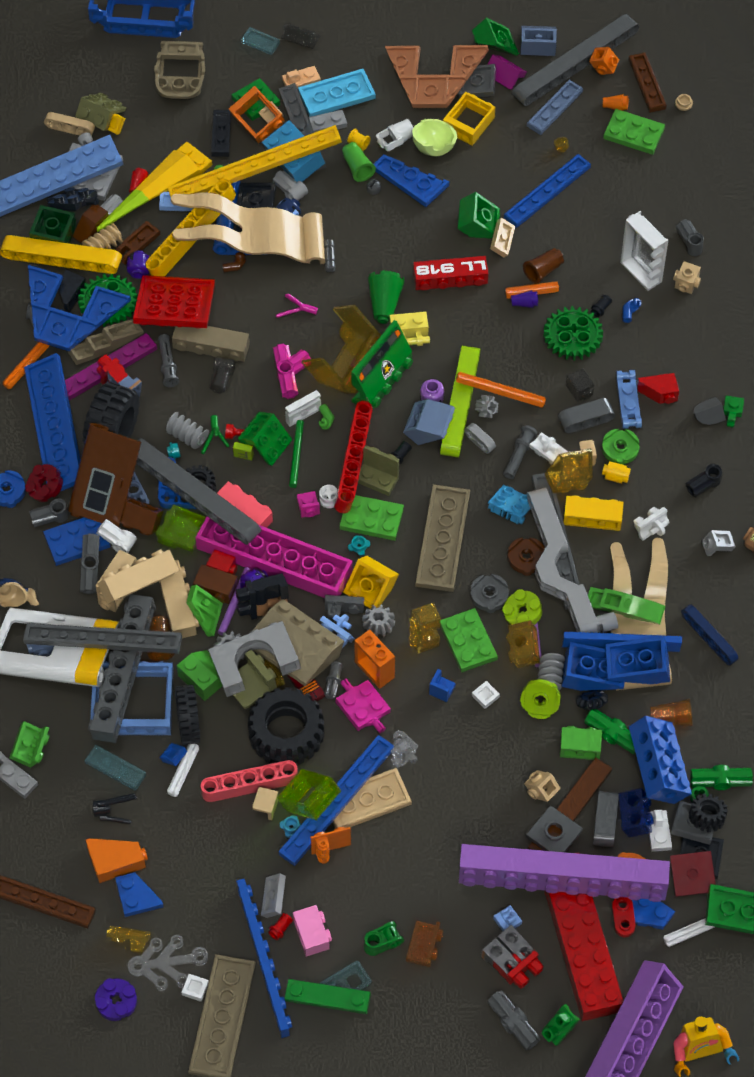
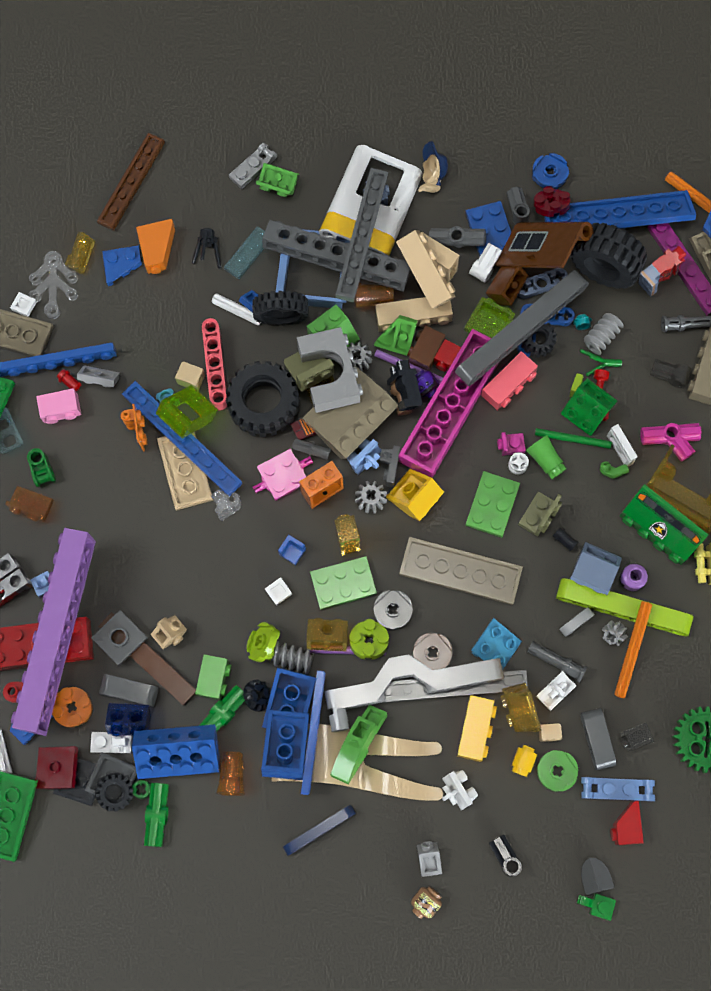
camera: 100 degrees right, 15 degrees up
(121, 1009) = (31, 249): dark purple plate -> none
(319, 471) = (547, 457): none -> bright green plant
(353, 457) = (568, 489): red beam -> none
(359, 540) = (459, 482): teal plate -> none

